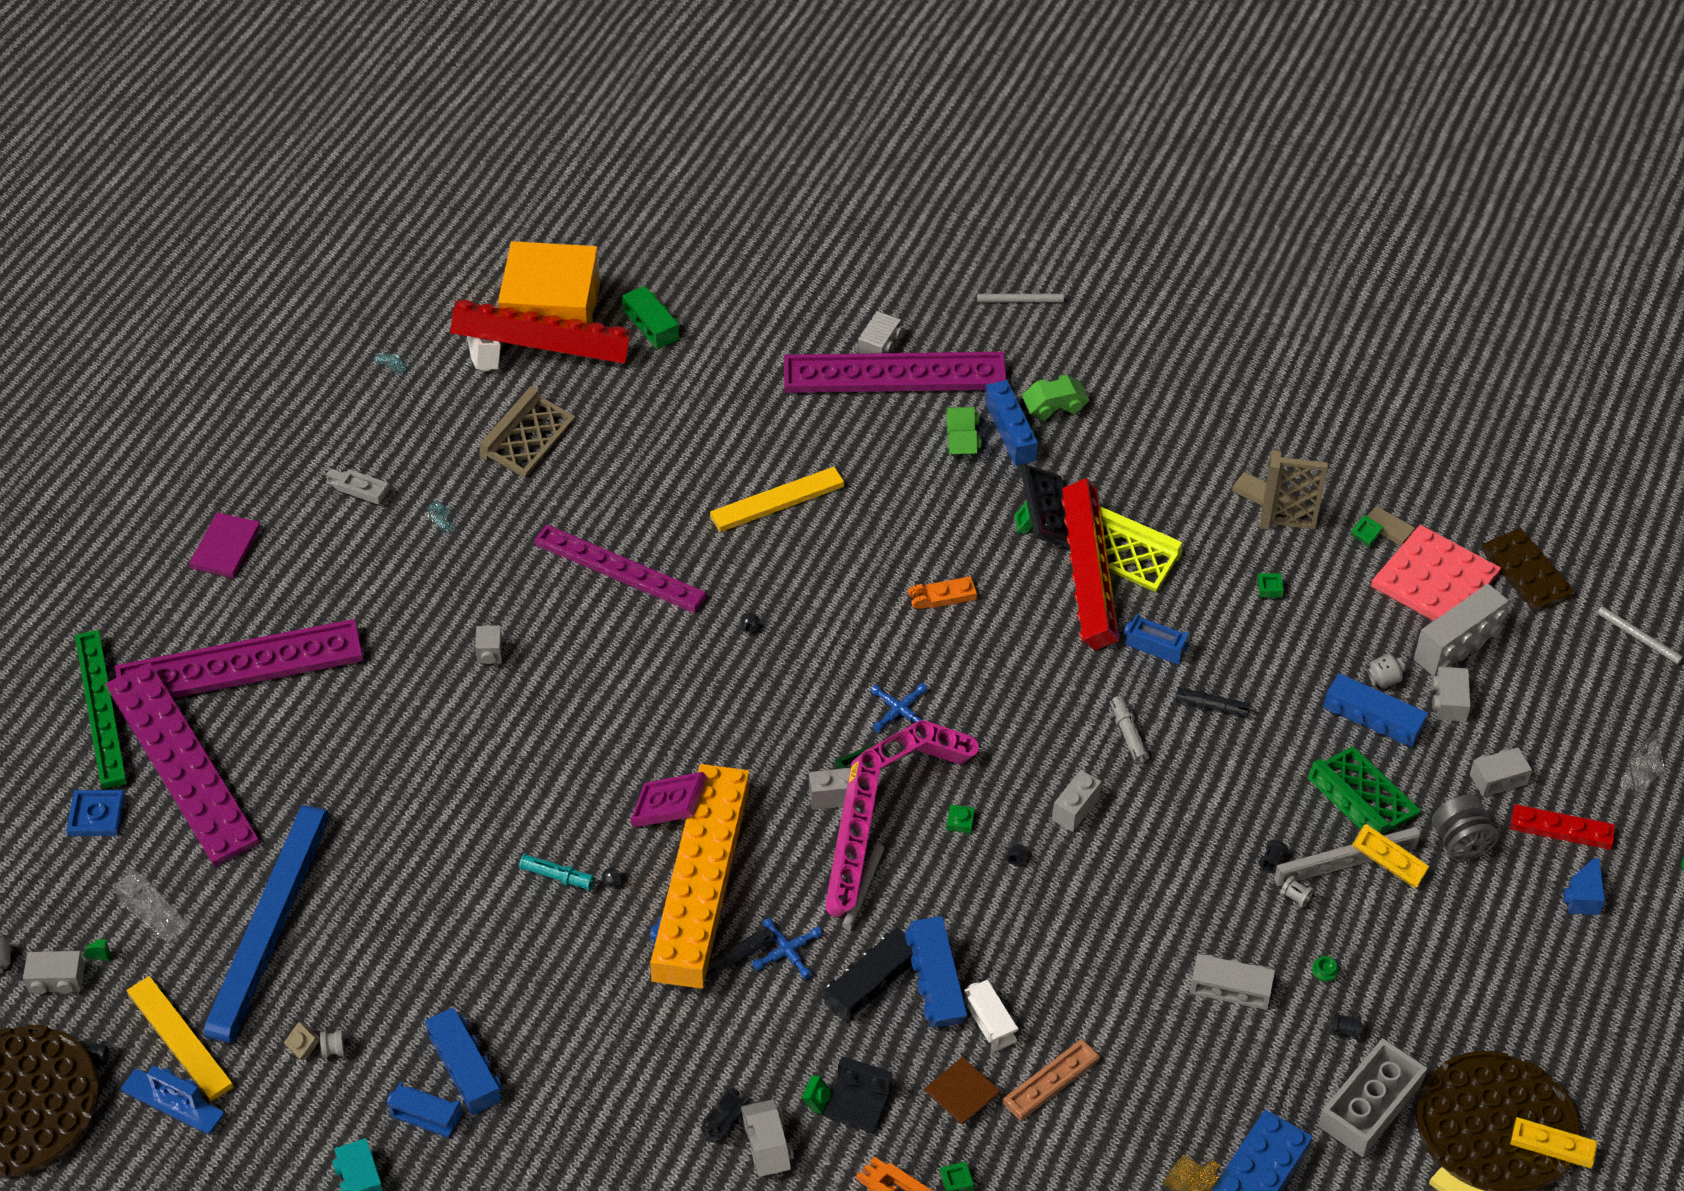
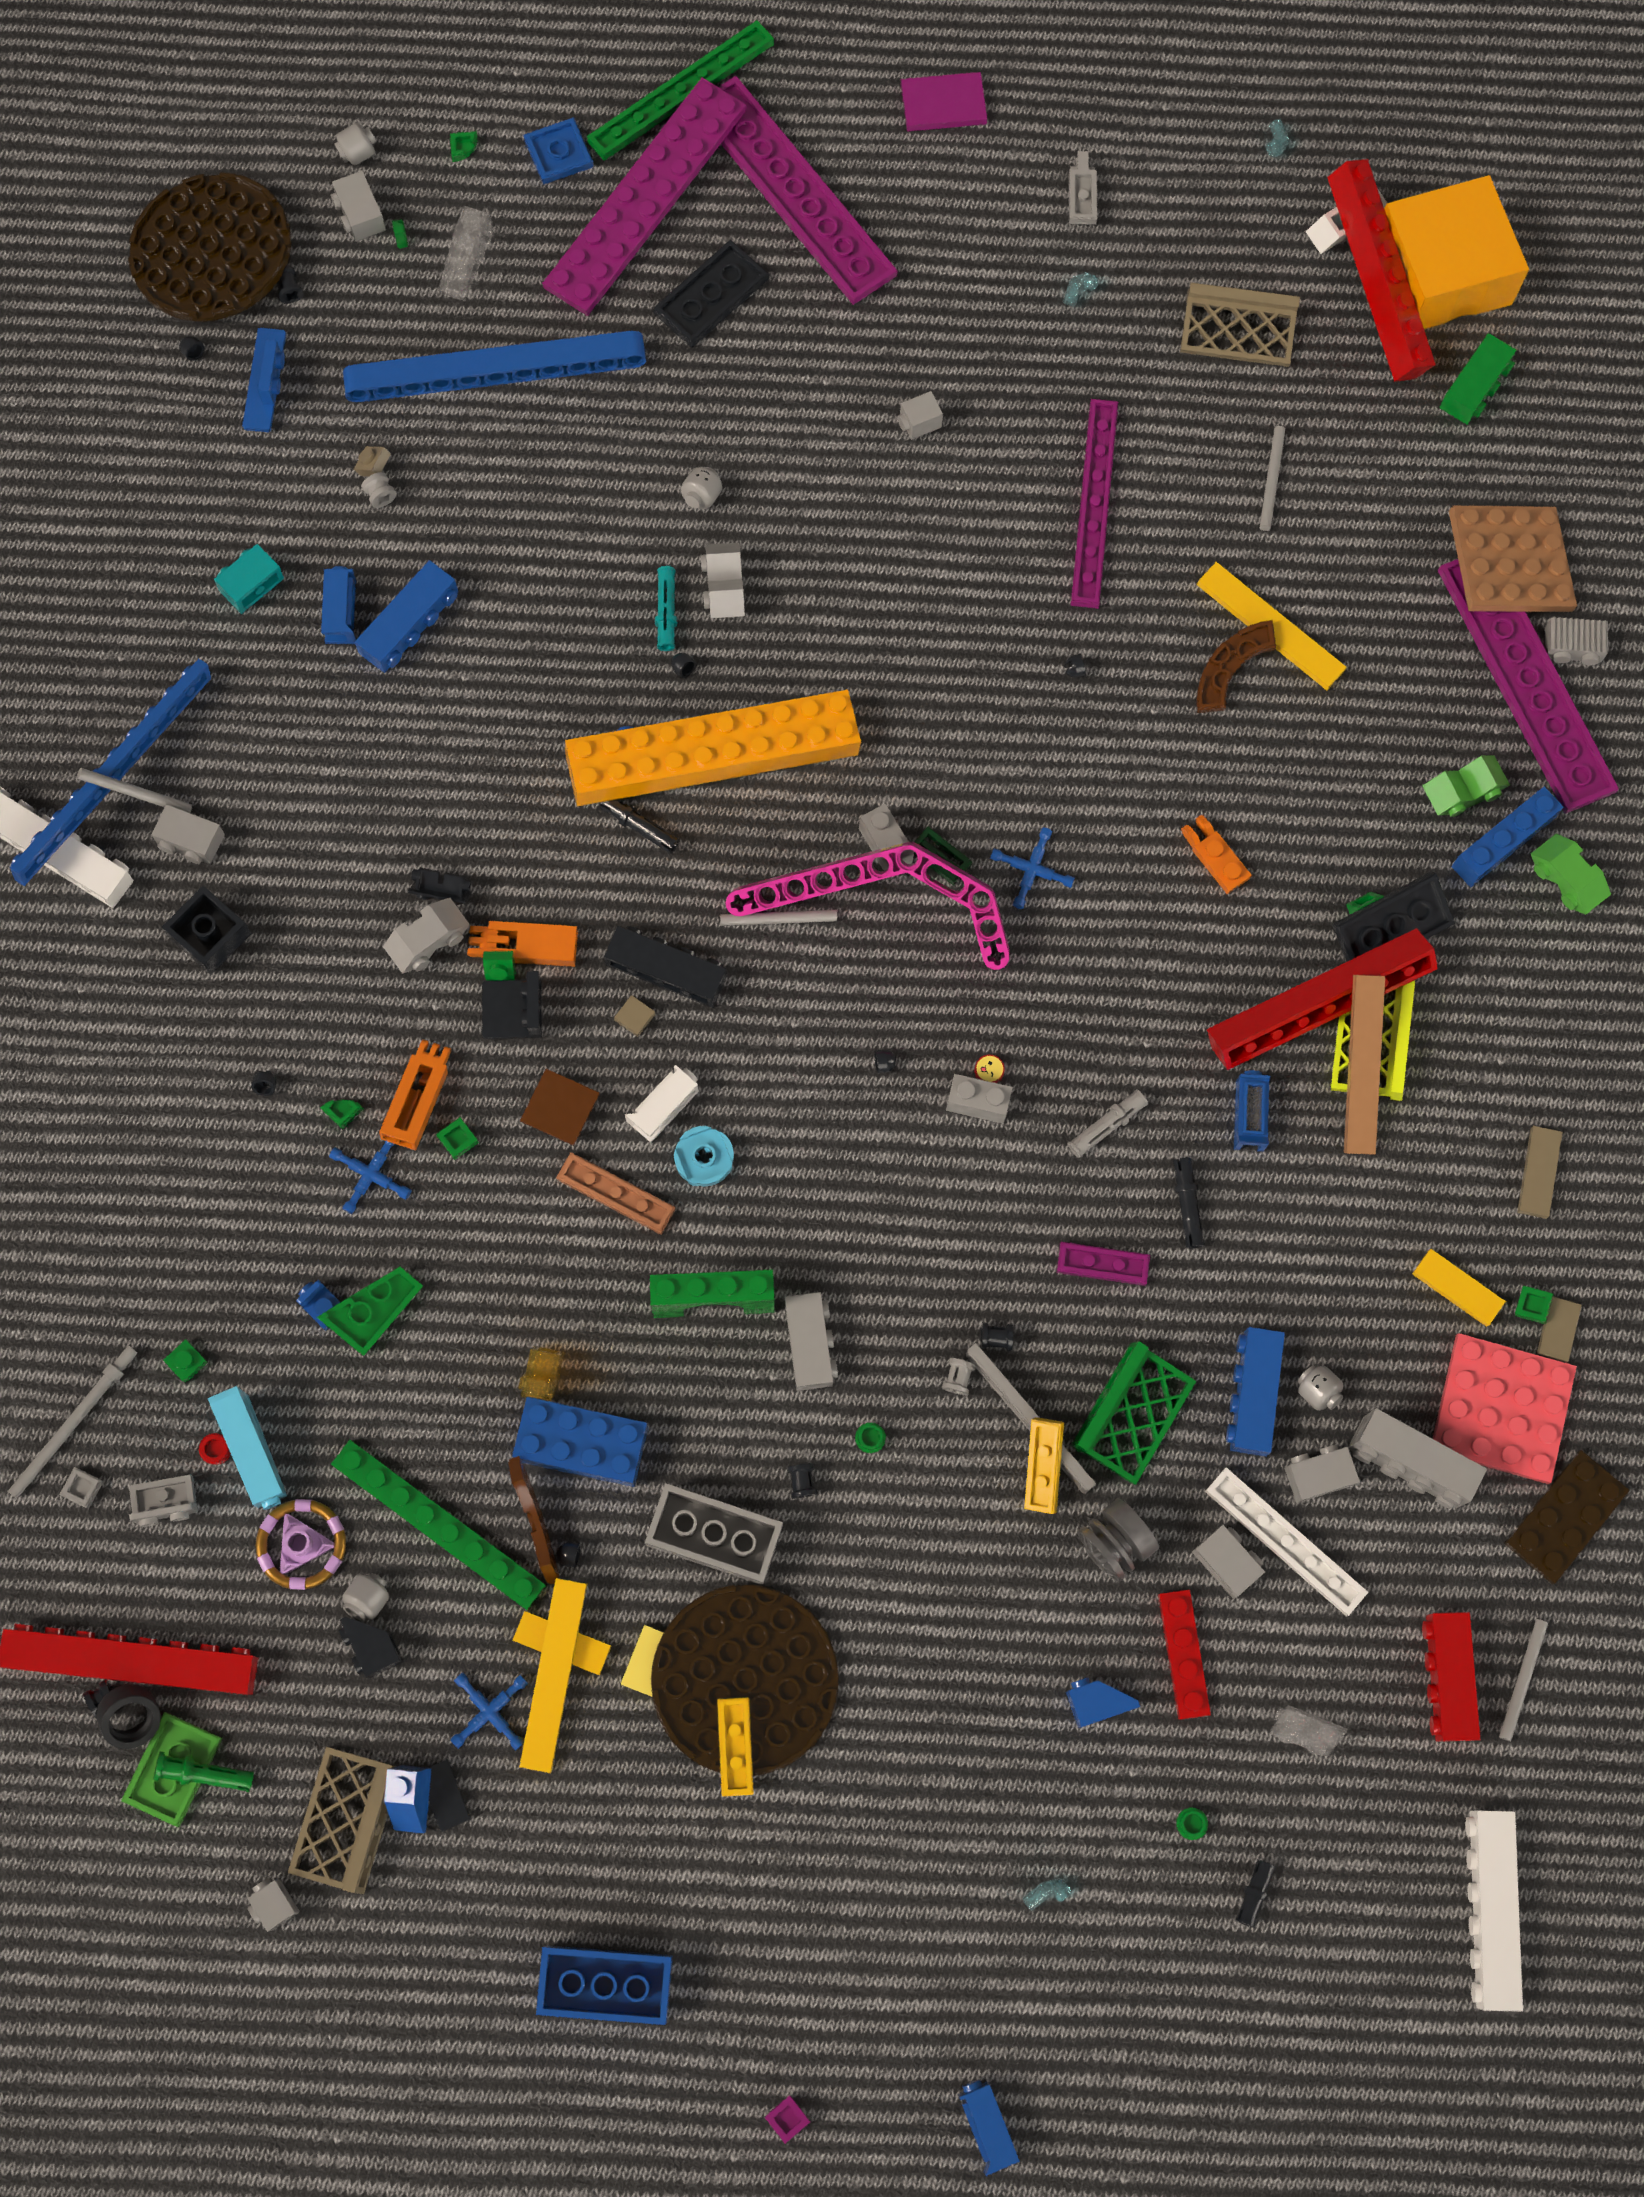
camera: 65 degrees right, 25 degrees up
(43, 880) = (462, 145): none -> green tile
(104, 1149) = (191, 348): none -> black hinge
(180, 1039) = (335, 352): yellow tile -> none
(294, 751) = (711, 293): none -> black tile
(466, 810) = (701, 487): none -> light grey head
(557, 824) = (724, 580): none -> light grey brick
(668, 462) = (1272, 478): none -> light grey bar
(668, 799) = (792, 677): magenta tile -> none
(787, 949) = (668, 871): blue piece -> none
(792, 533) = (1227, 660): none -> reddish brown tile
(801, 345) = (1512, 558): none -> medium nougat plate
(808, 1059) = (535, 942): none -> orange hinge
(902, 1014) = (634, 1016): none -> dark tan tile
(936, 972) = (683, 1028): blue brick -> none
(960, 819) = (908, 985): green plate -> none
(1041, 1016) = (696, 1171): none -> medium azure plate
(1052, 789) = (989, 1069): none -> light yellow tile
(1152, 555) = (1364, 1064): none -> medium nougat tile
(1173, 1017) = (676, 1292): none -> green arch
(1238, 772) = (1103, 1263): none -> magenta tile
(1270, 585) = (1394, 1215): green plate -> none
(1274, 484) = (1525, 1192): dark tan fence -> none
(1336, 570) = (1458, 1287): none -> yellow tile
(1495, 733) = (1286, 1542): none -> white plate
(1628, 671) = (1452, 1677): none -> red brick

